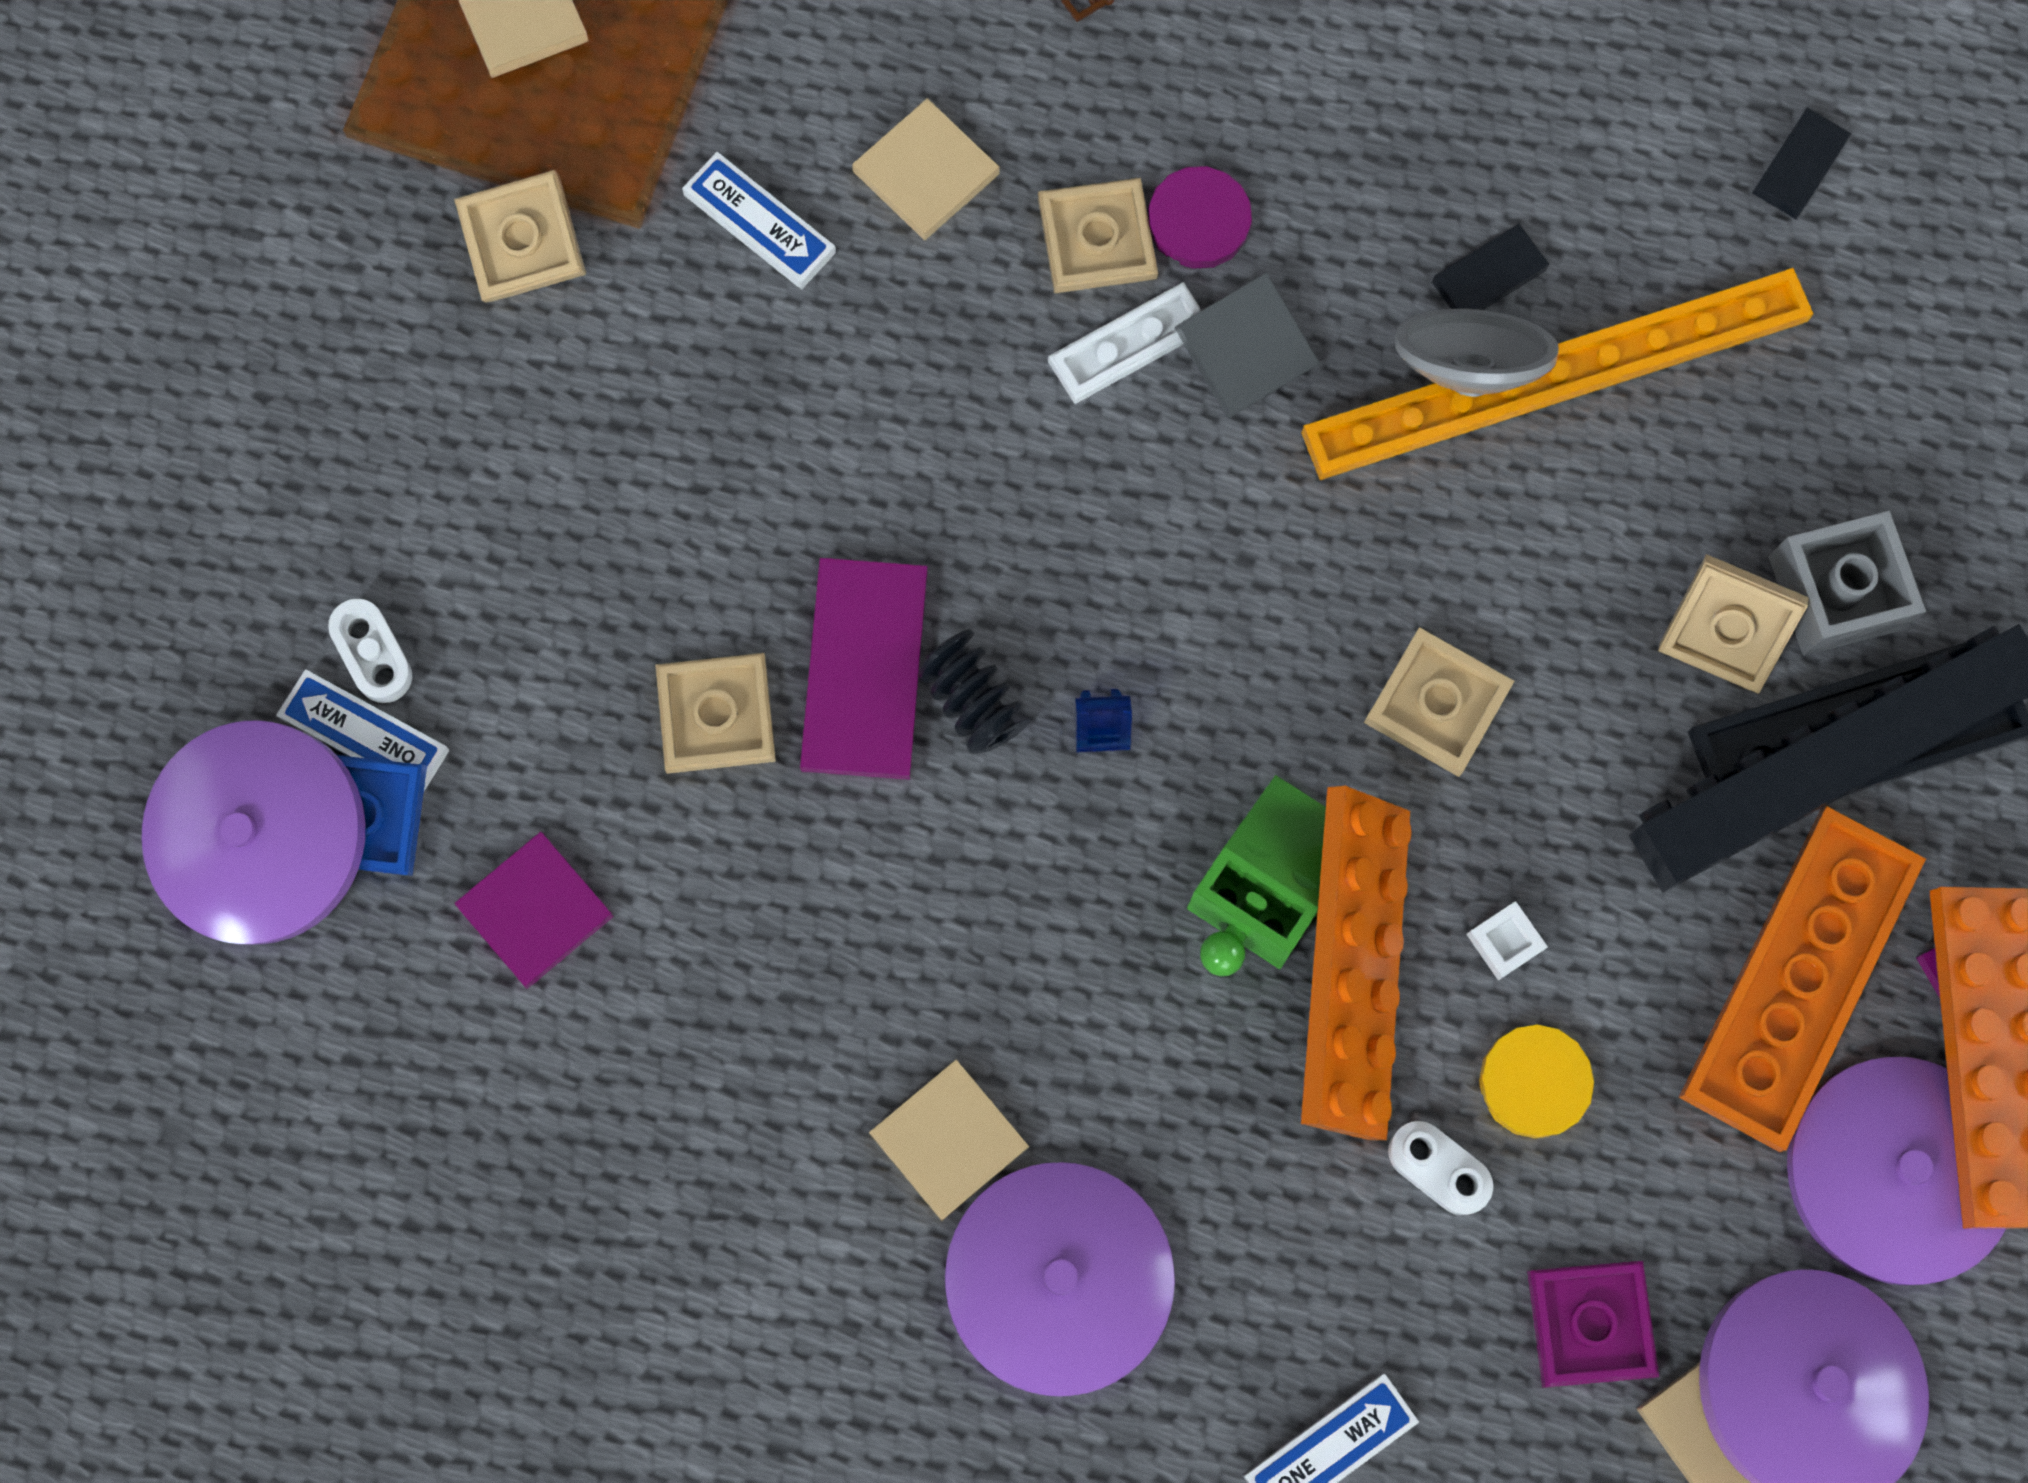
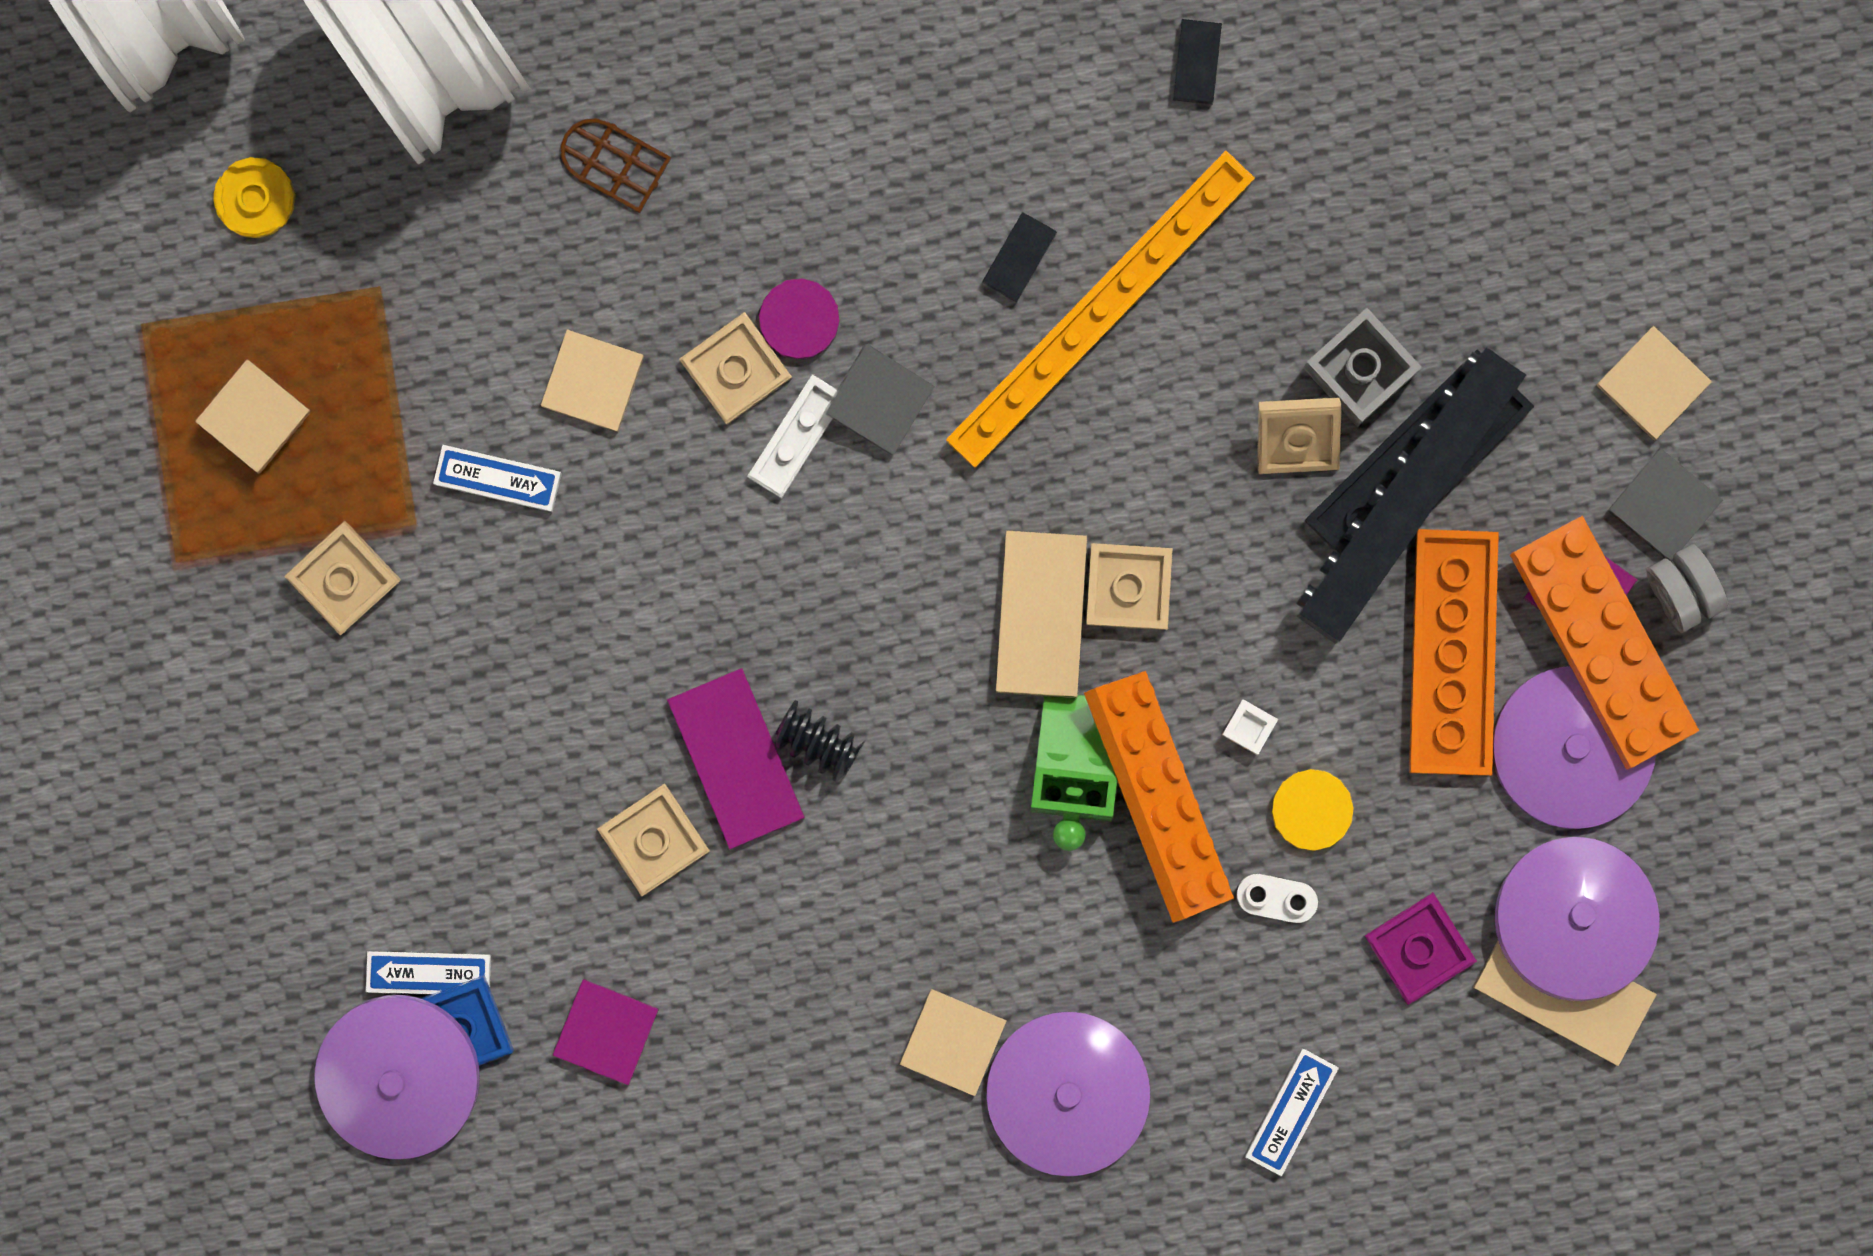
camera: 20 degrees left, 10 degrees up
(371, 653) = (403, 918): white plate -> none
(1103, 722) = (913, 716): clear blue tile -> none
(1316, 683) = (1041, 614): none -> tan tile
(1476, 350) = (1036, 332): light grey dish -> none

